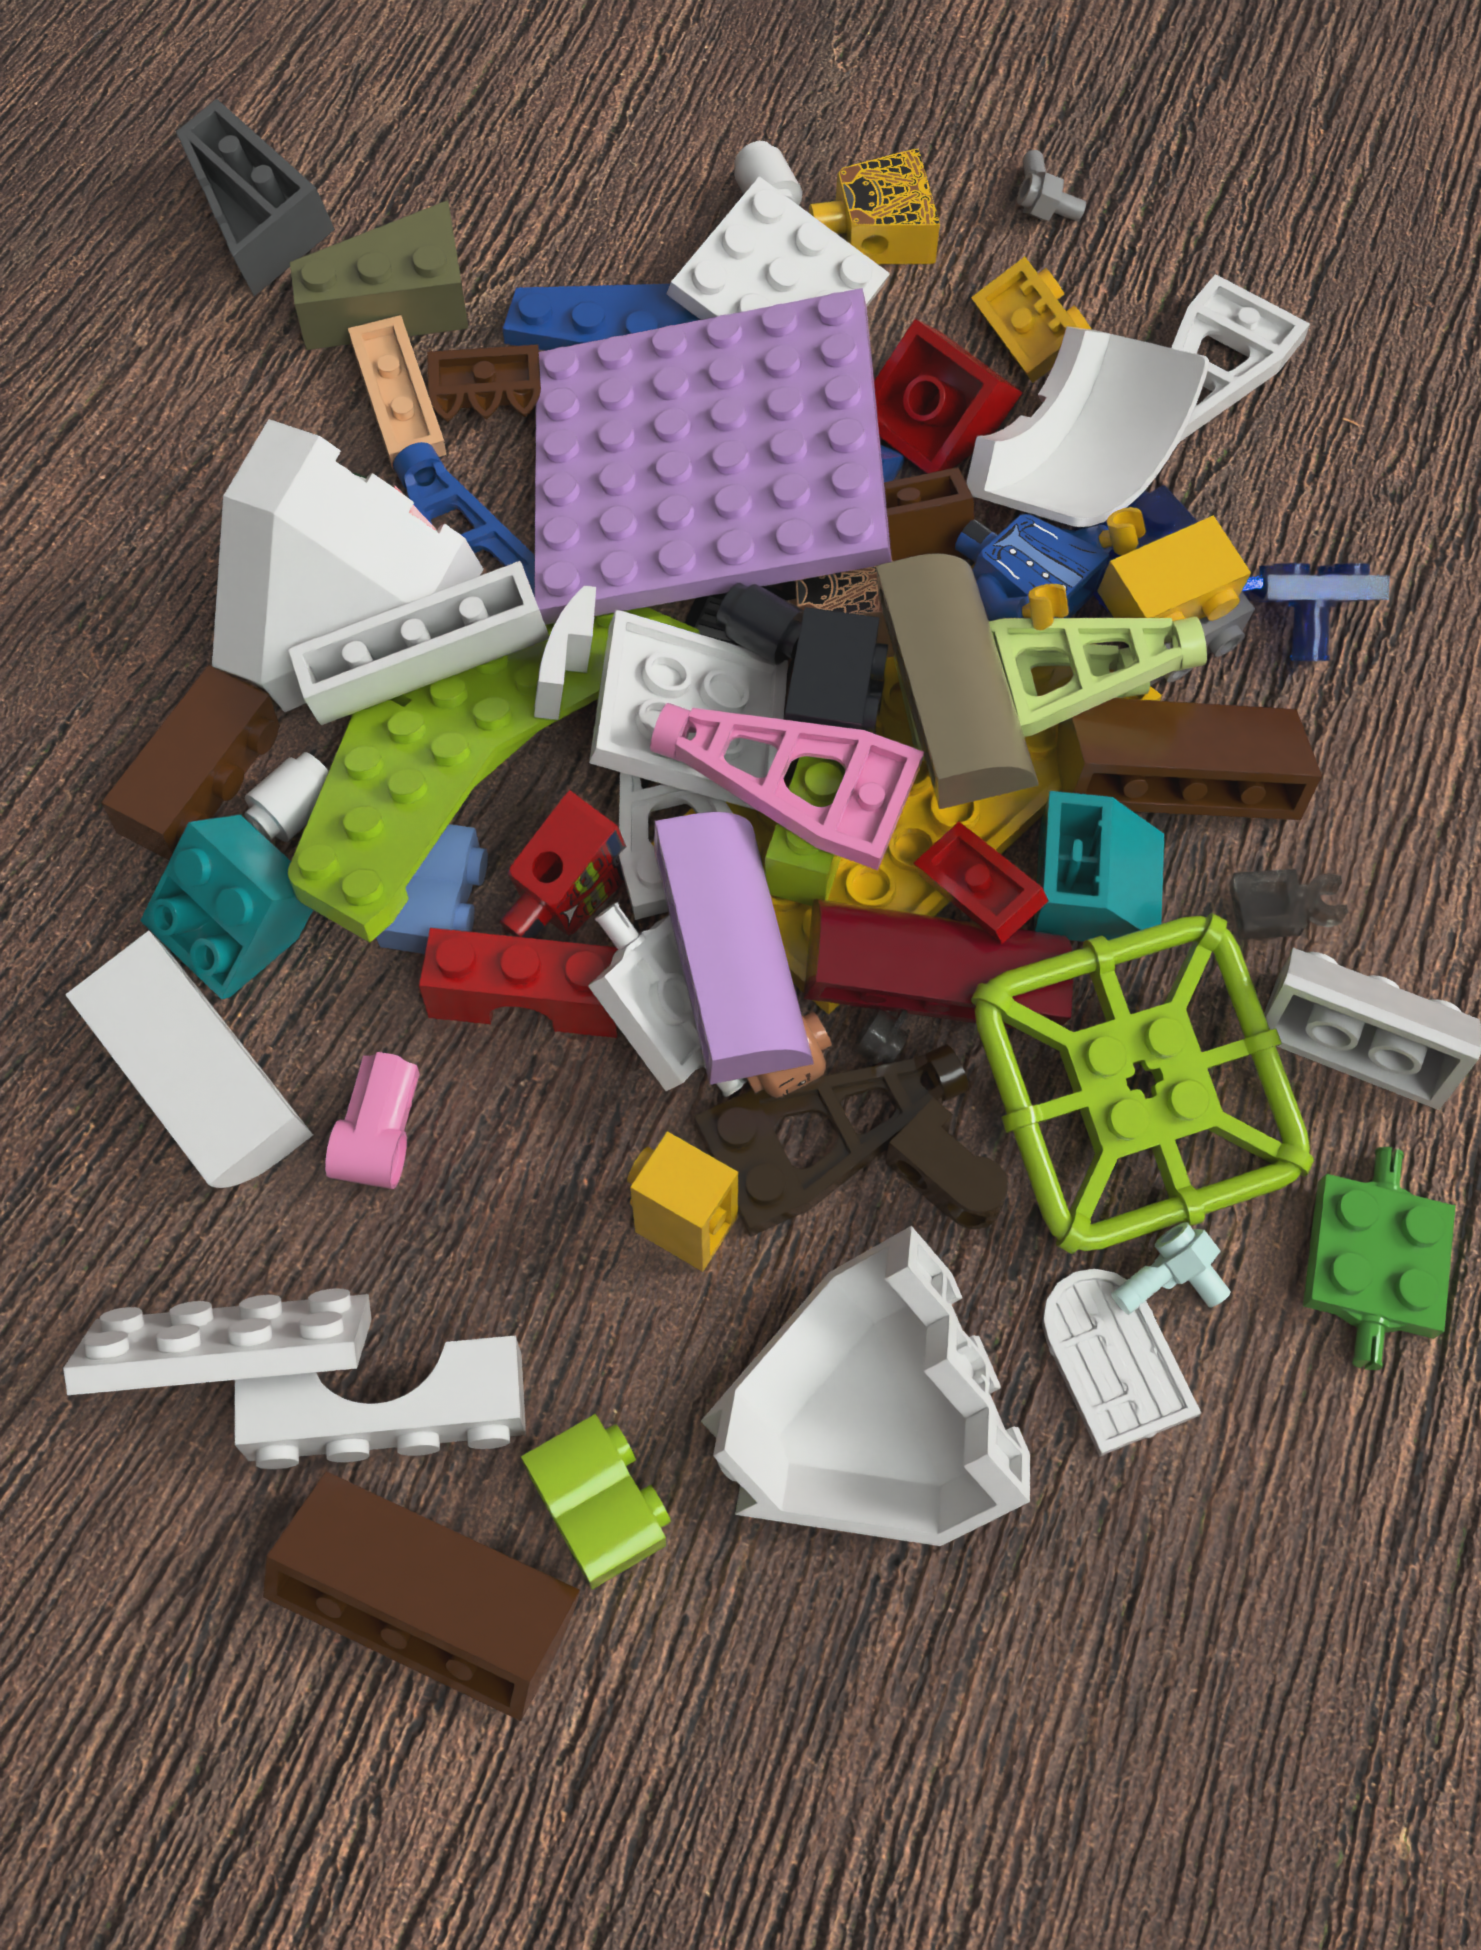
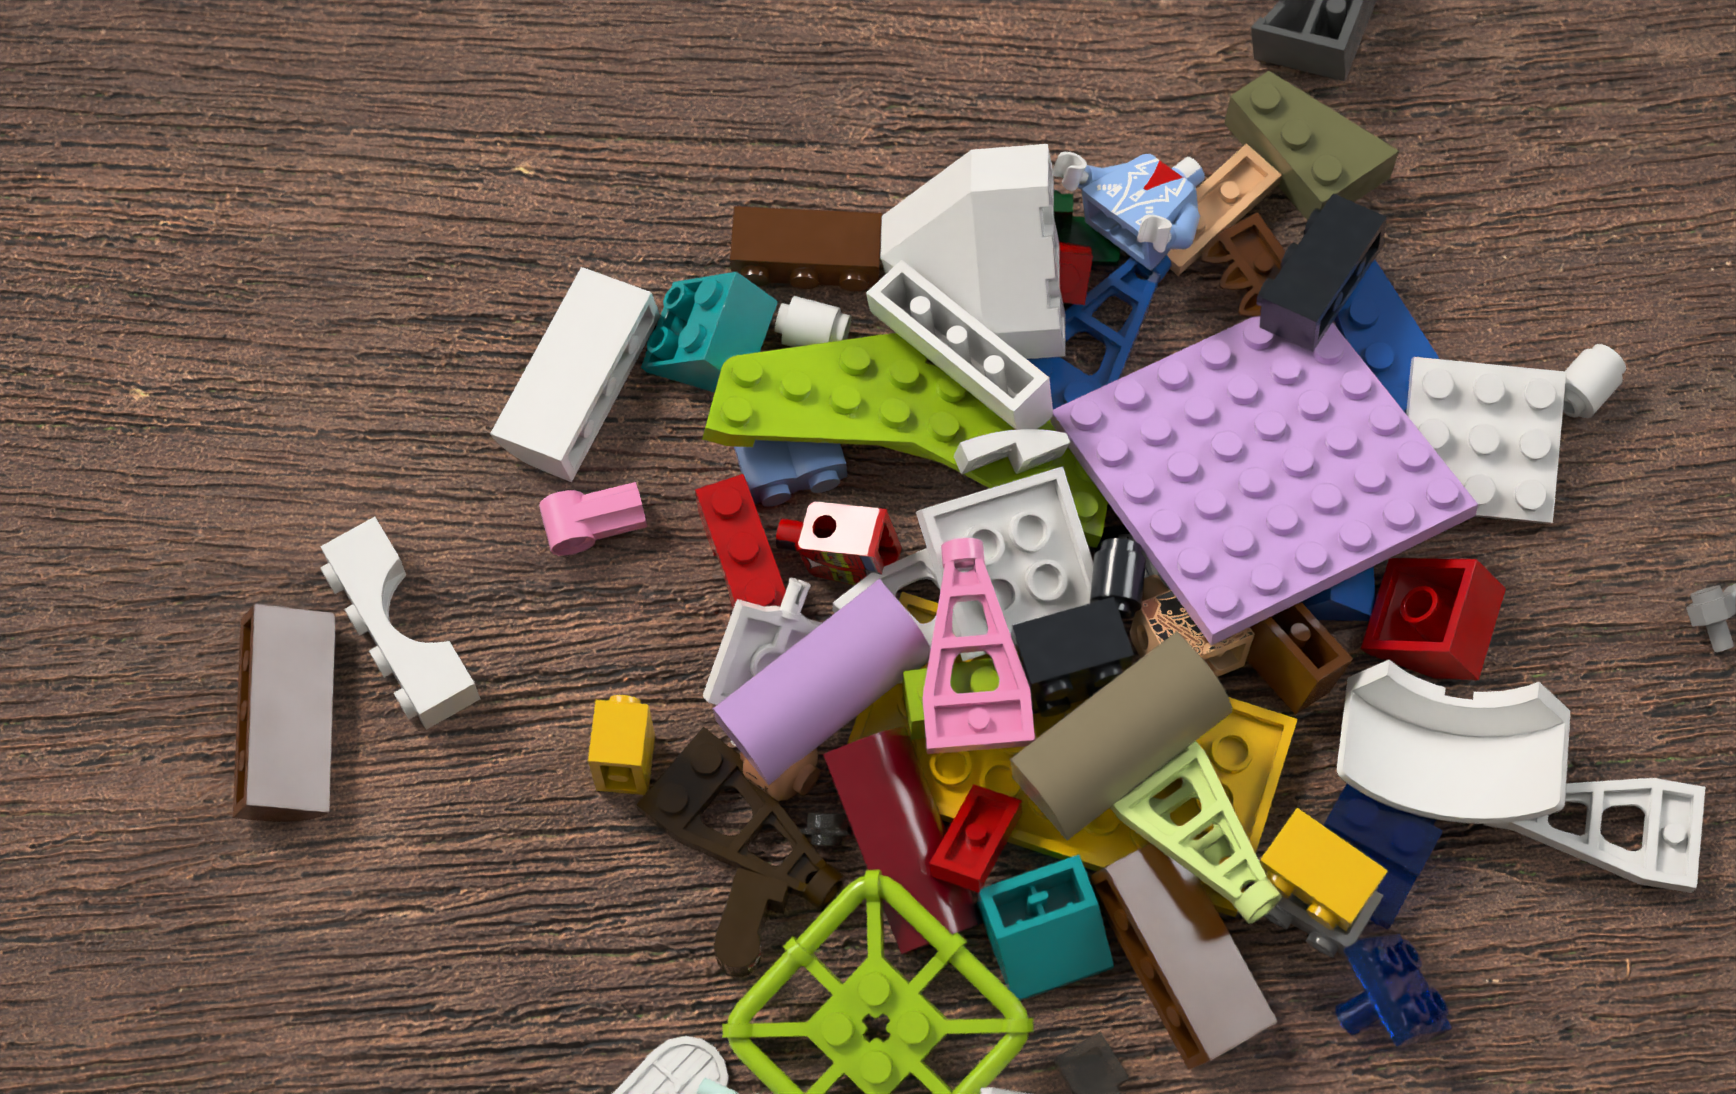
camera: 65 degrees right, 5 degrees up
(221, 1343) = (385, 503): white plate -> none
(373, 419) = (1137, 203): none -> light blue torso
(534, 315) = (1321, 271): none -> black brick
(596, 1499) = (394, 793): lime brick -> none
(873, 1410) = (536, 944): white panel -> none
(885, 210) = (1613, 486): yellow torso -> none
(1028, 316) = (1572, 656): yellow bracket -> none
(1044, 568) = (1283, 763): torso -> none

